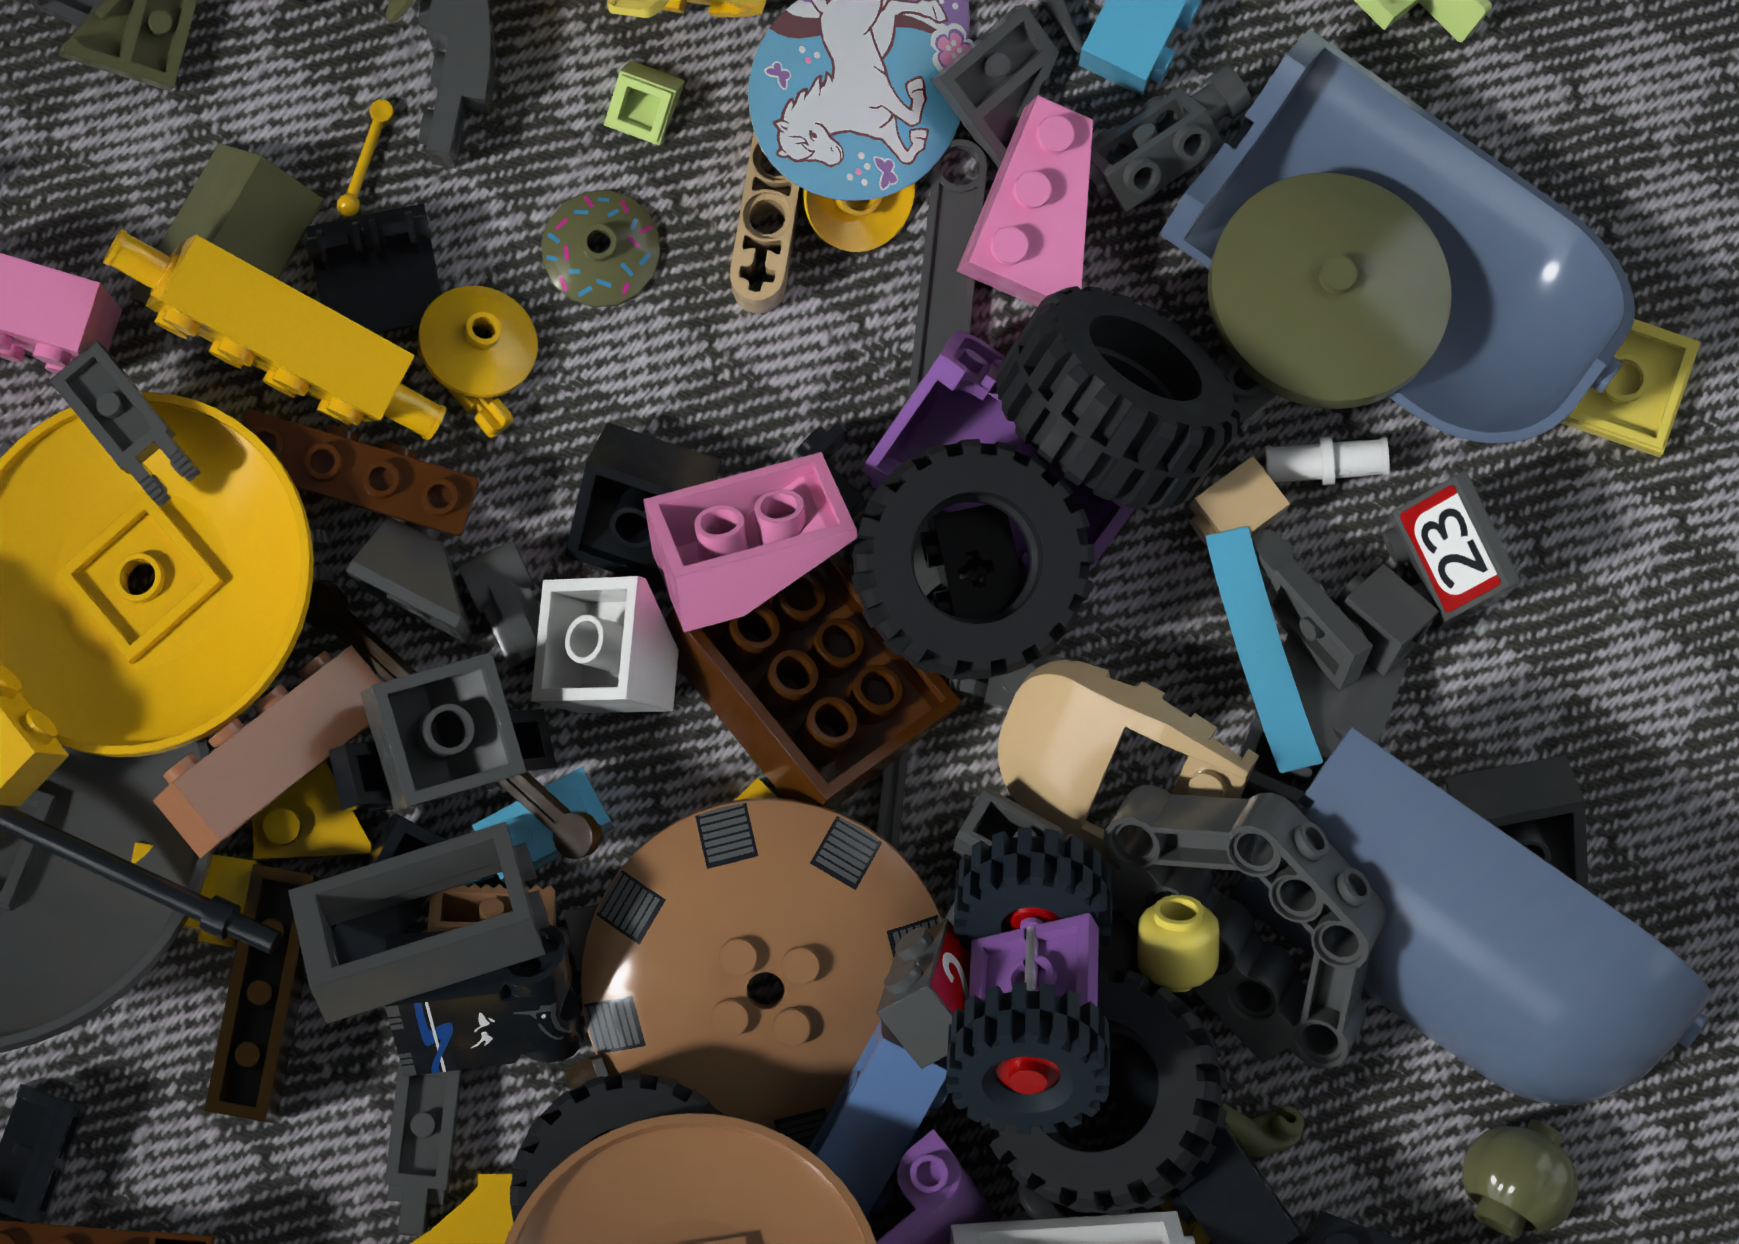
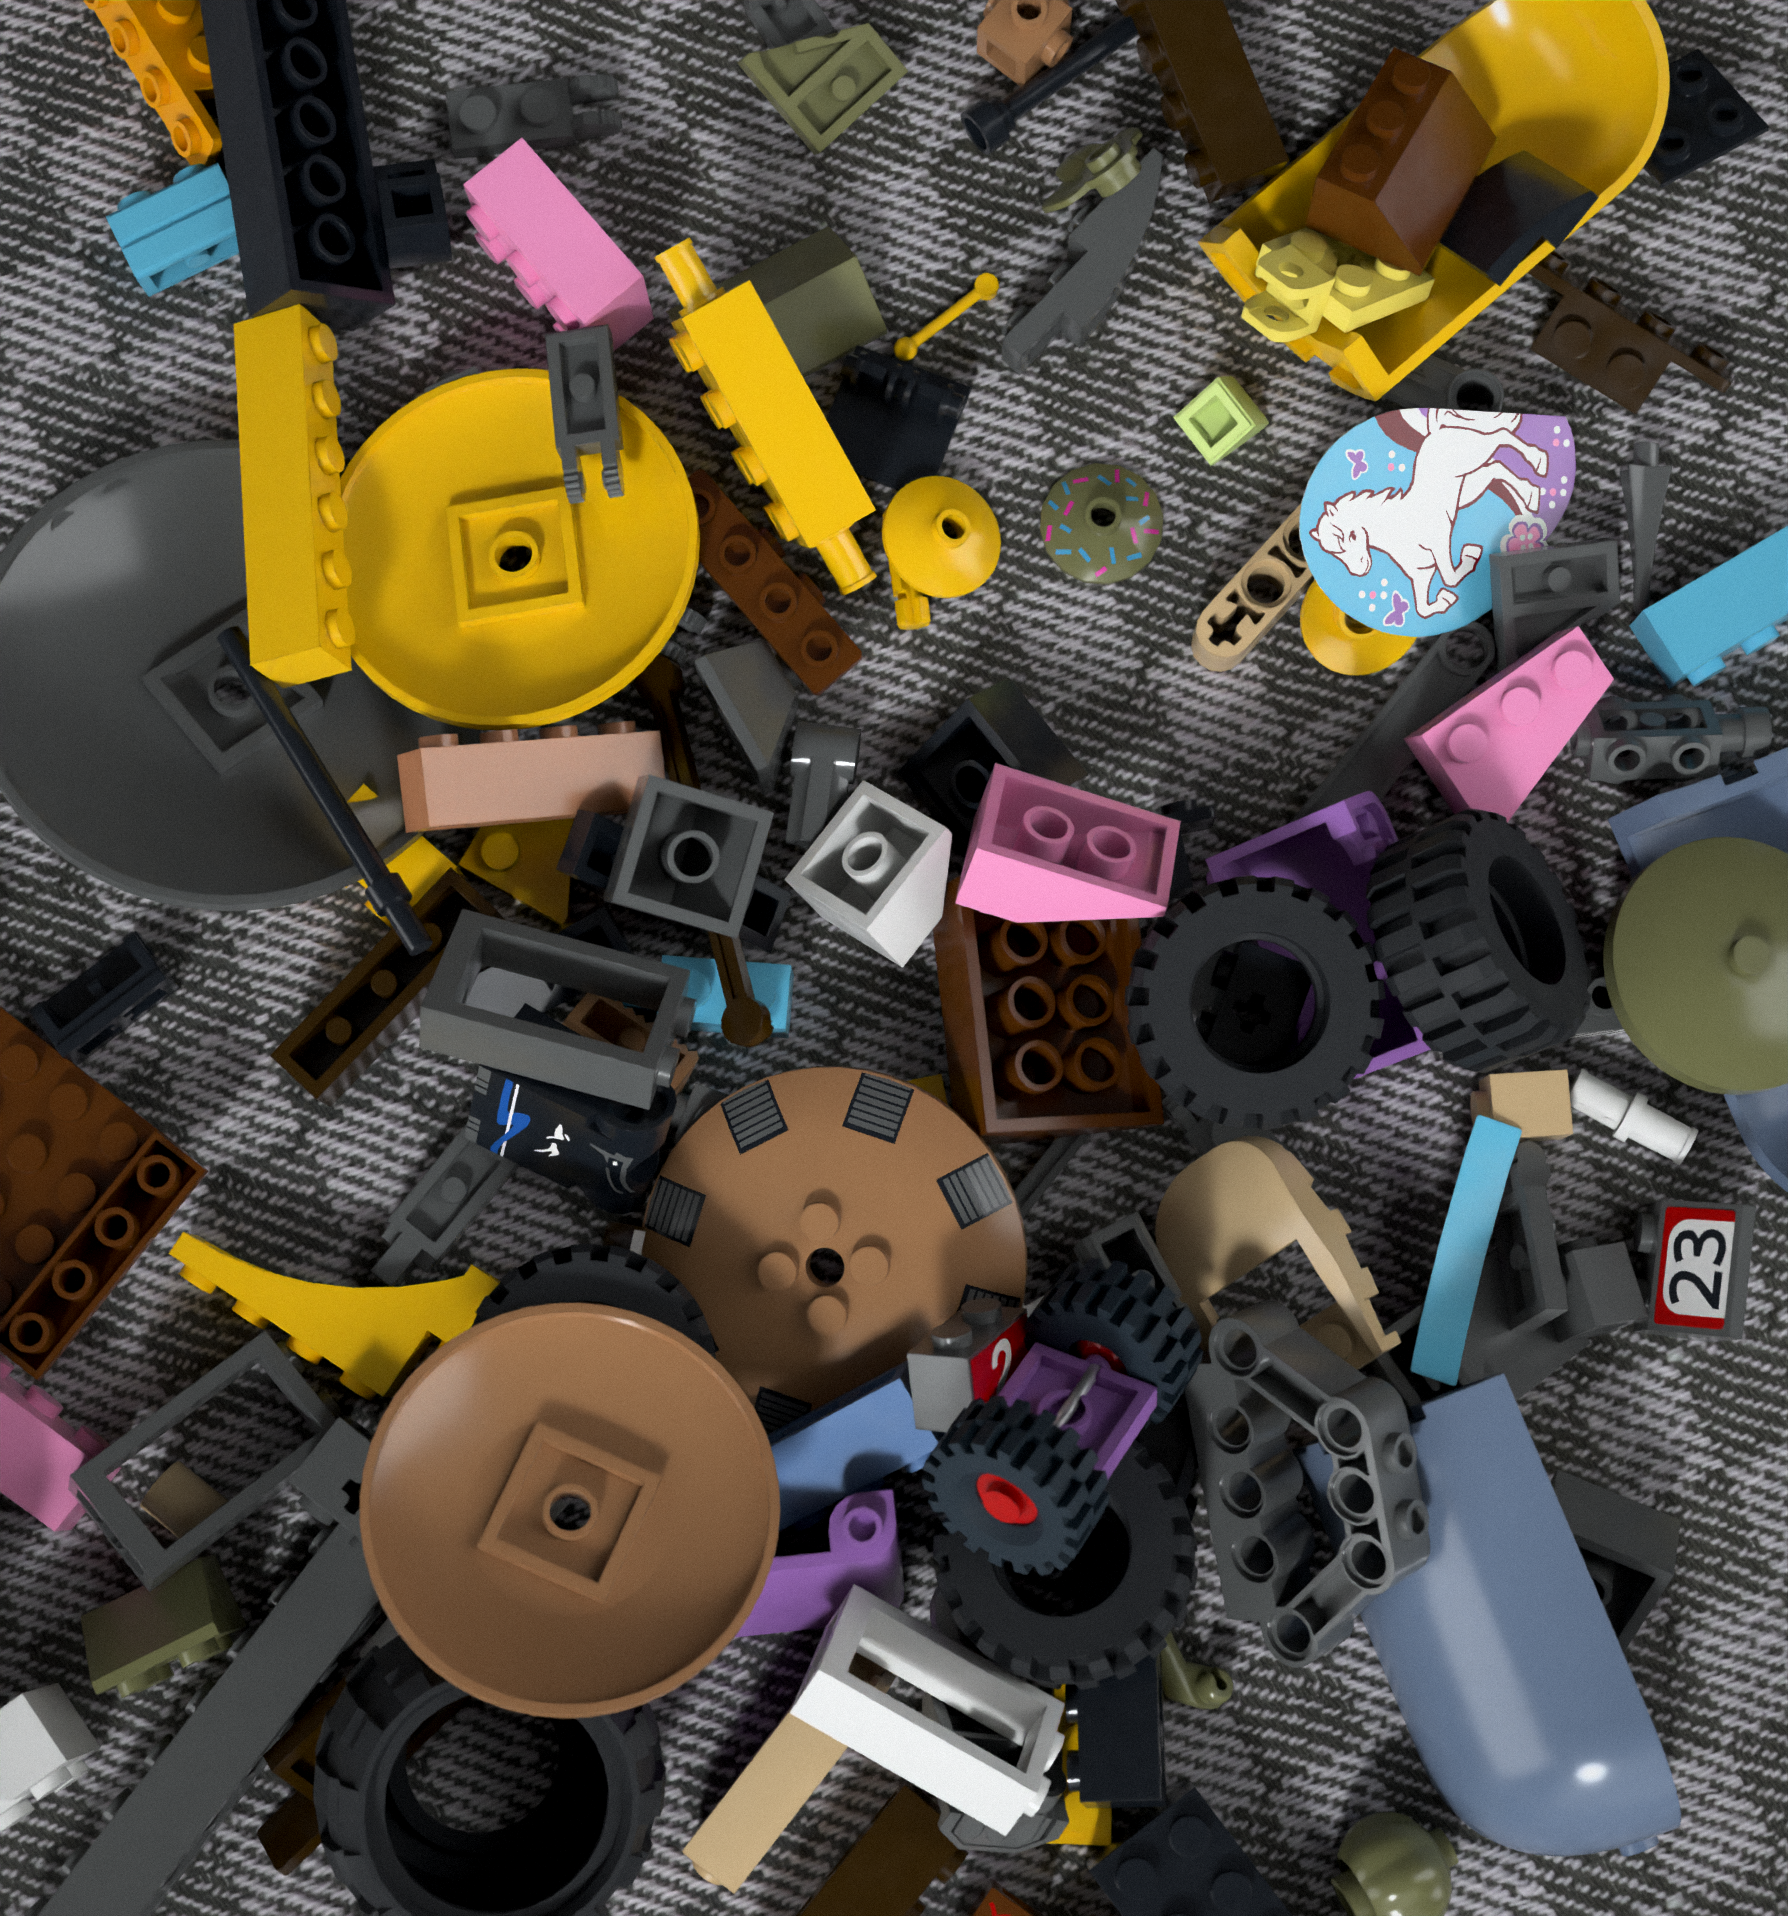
camera: 35 degrees right, 0 degrees up
(1178, 943) = (1219, 1465): light yellow head -> none

